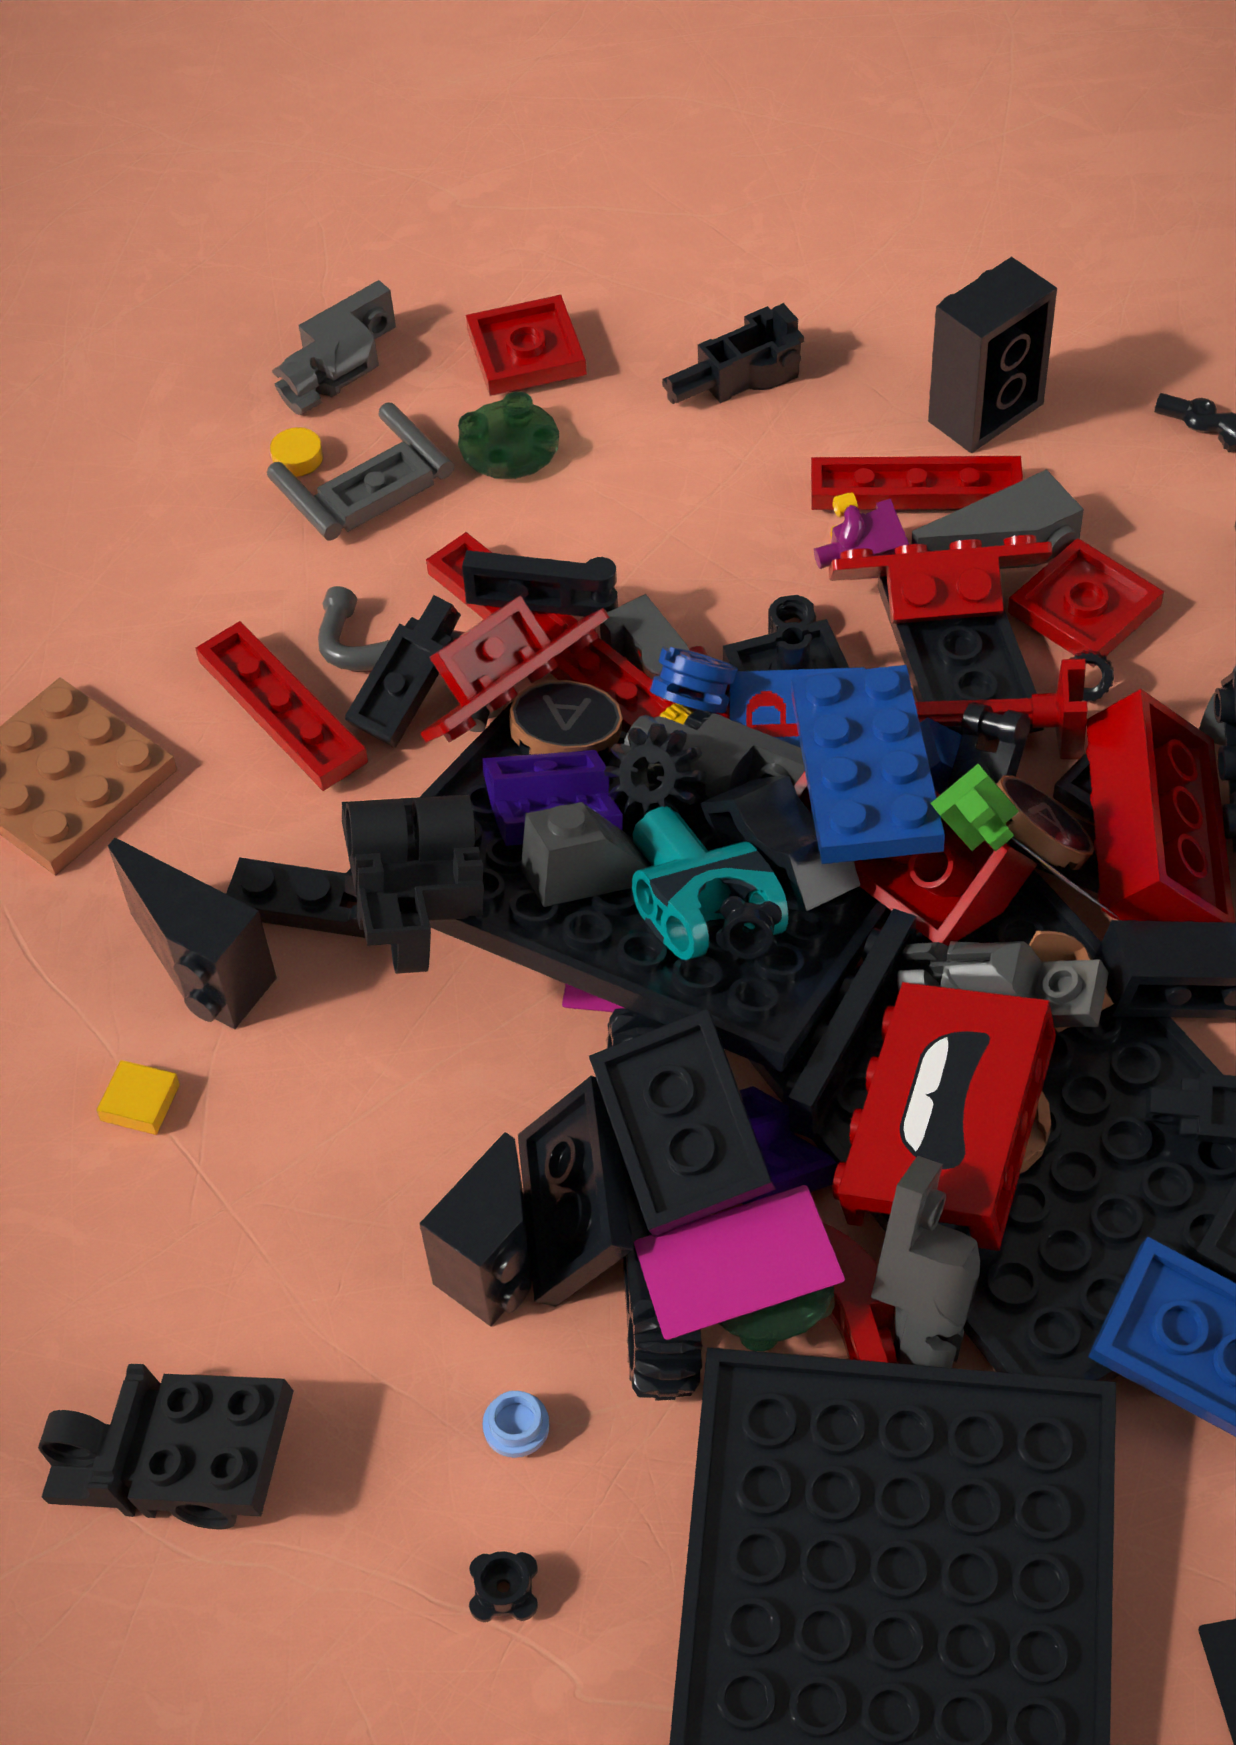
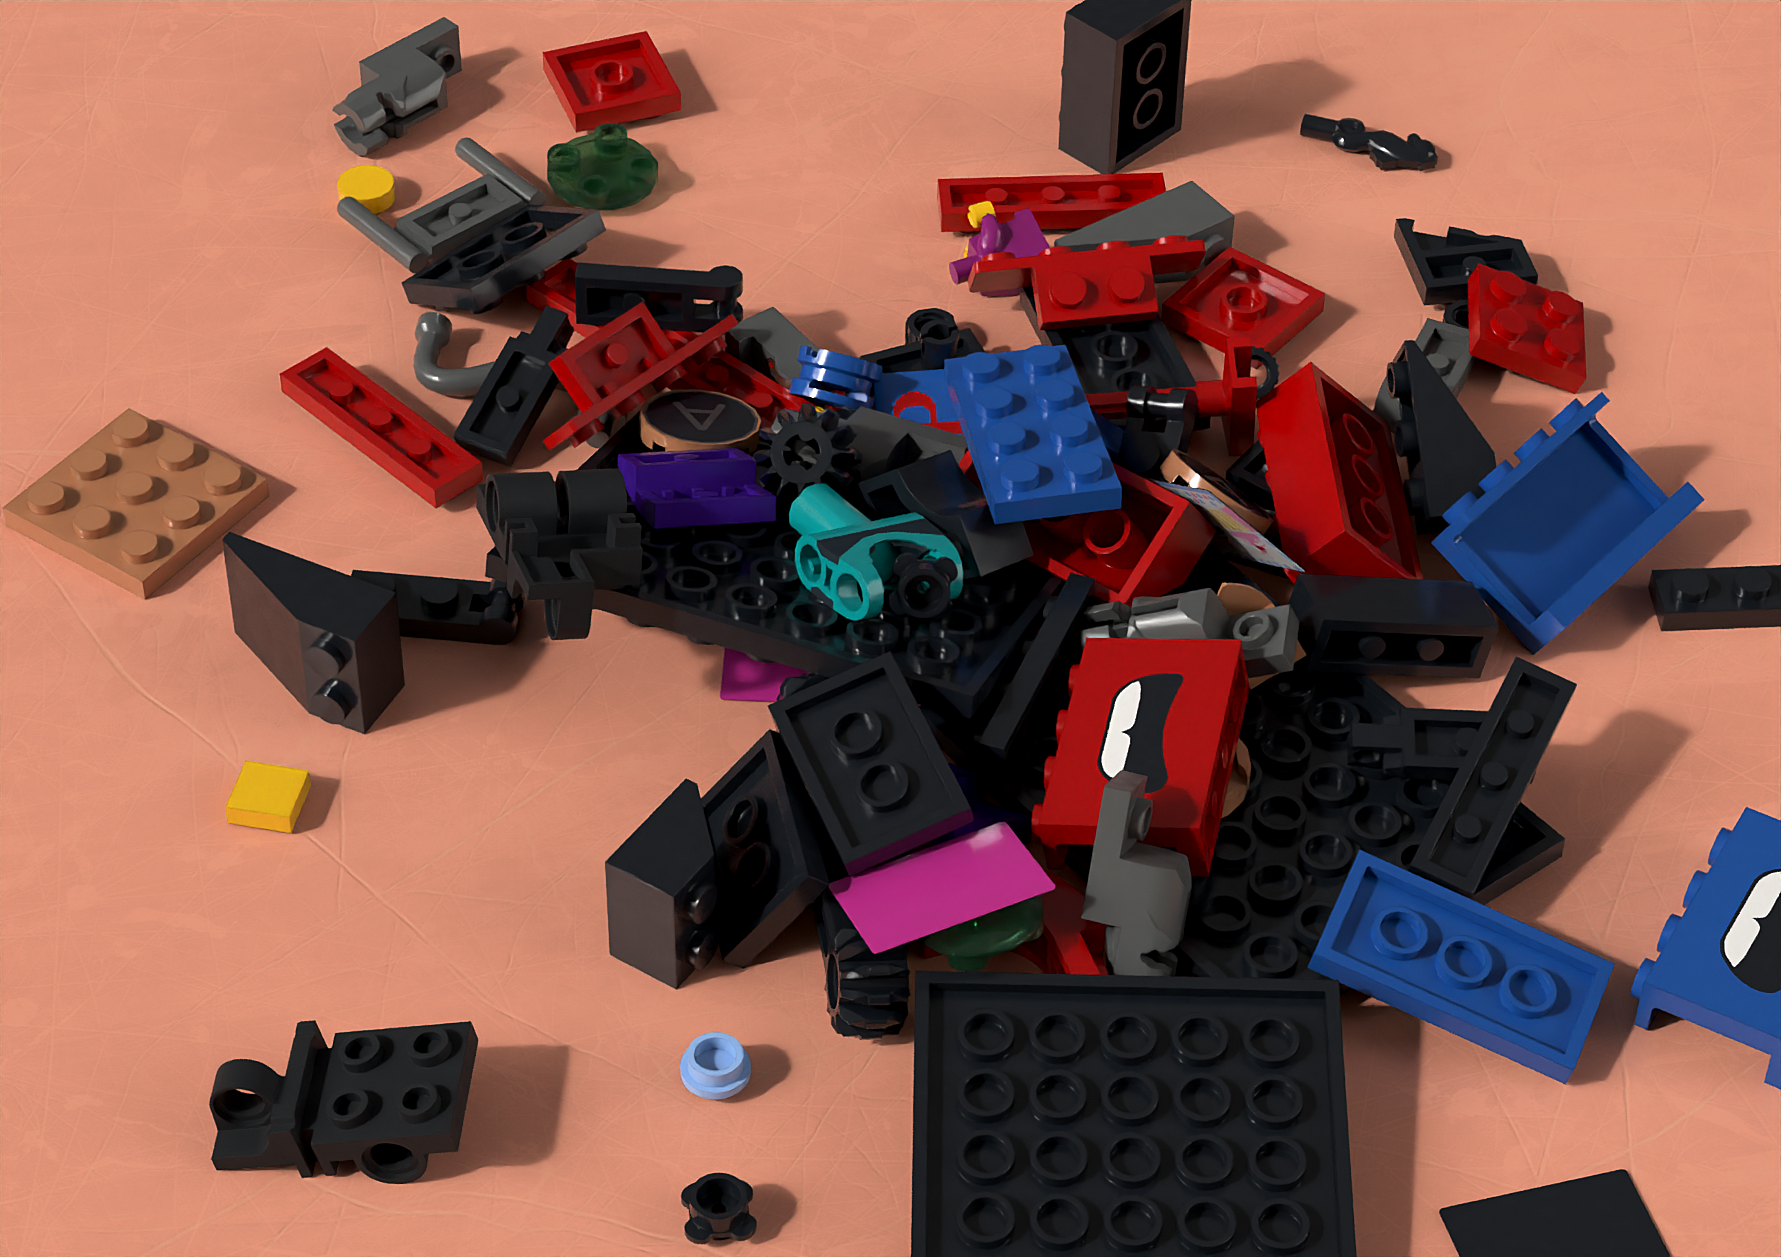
camera: 10 degrees left, 10 degrees down
(408, 532) = (504, 258): none -> black plate
(576, 854) = (730, 528): dark grey slope -> none
(751, 357) = (863, 87): black piece -> none
(977, 810) = (1153, 462): bright green tile -> none

